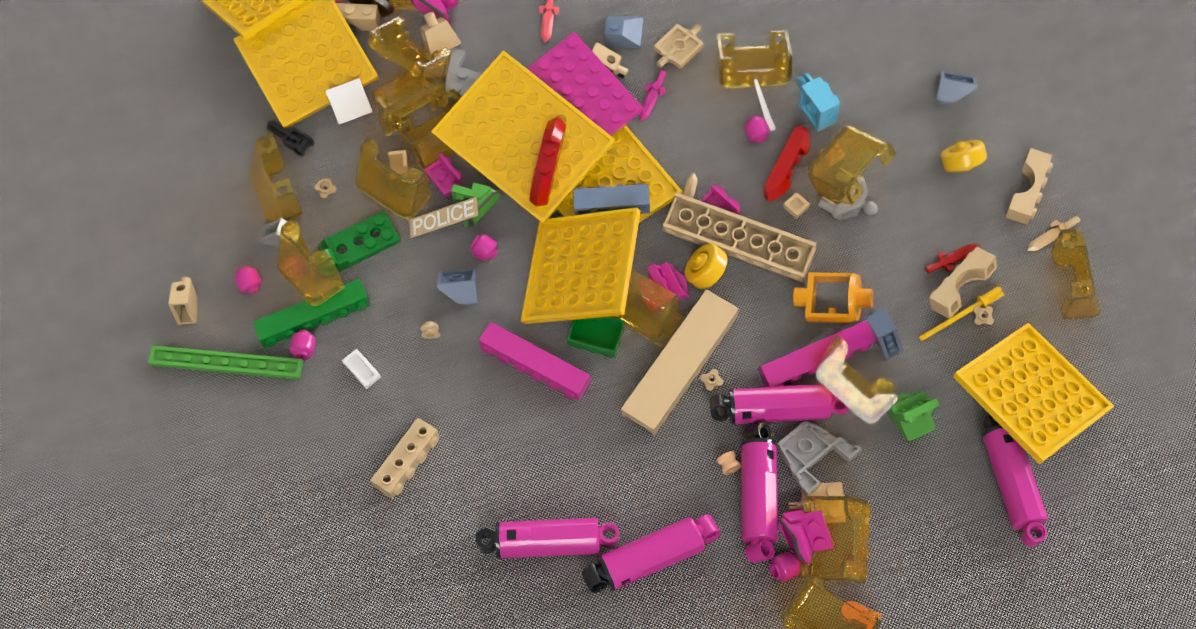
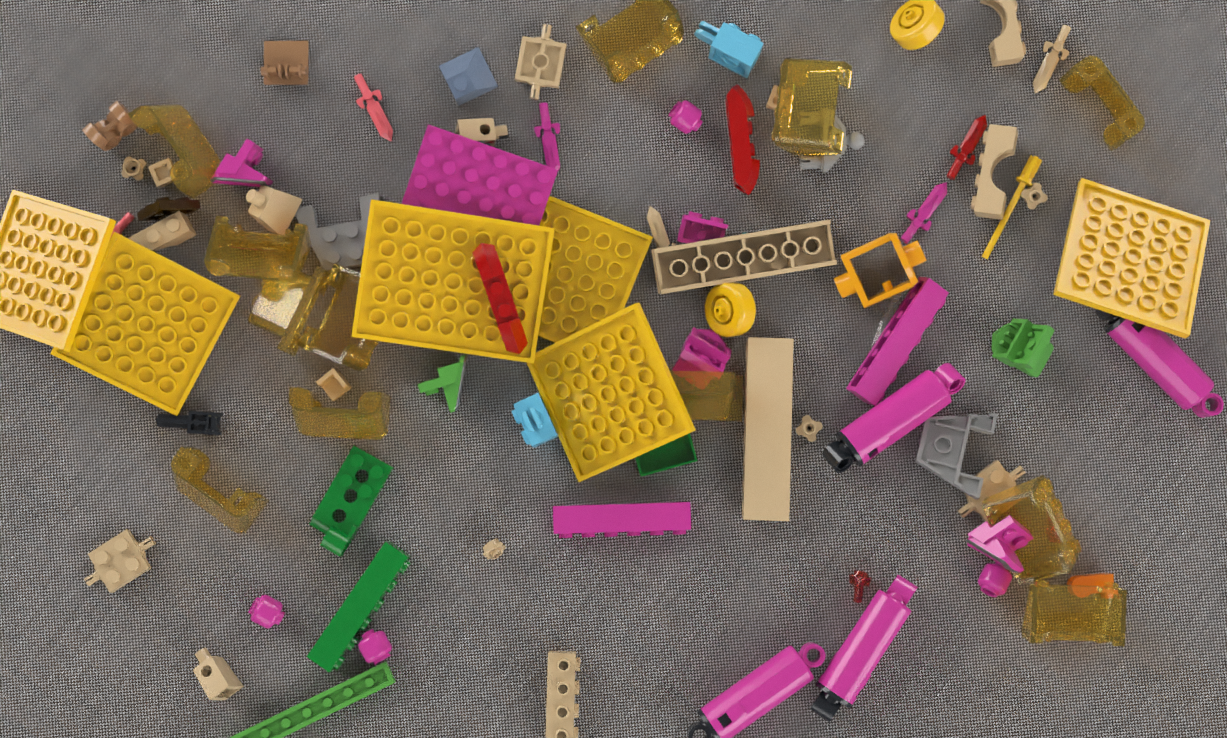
camera: 35 degrees left, 20 degrees up
(178, 195) = (119, 561): none -> tan plate
(270, 232) = (261, 541): light grey slope -> none
(311, 276) = (345, 578): clear yellow windscreen -> none
(323, 184) = (266, 456): tan plate -> none
(348, 101) = (228, 344): white tile -> none
(361, 368) = (450, 631): white tile -> none
(443, 217) = (427, 420): tan sticker -> none
(444, 175) = (391, 369): dark pink bracket -> none
(459, 285) = (490, 482): sand blue slope -> none
(484, 247) = (488, 425): dark pink head -> none
(517, 259) = (535, 420): none -> medium azure brick
(611, 198) = (590, 295): sand blue brick -> none
(679, 505) = (860, 581): none -> clear red plate
(729, 463) = (879, 507): light nougat wheel -> none
(759, 493) = (928, 522): dark pink piece -> none
(764, 107) = (684, 91): white sticker -> none
(796, 205) = (778, 181): tan plate -> none
(864, 399) = (970, 362): clear yellow windscreen -> none
(885, 333) = (961, 287): sand blue brick -> none
(895, 283) = (925, 212): none -> dark pink sword

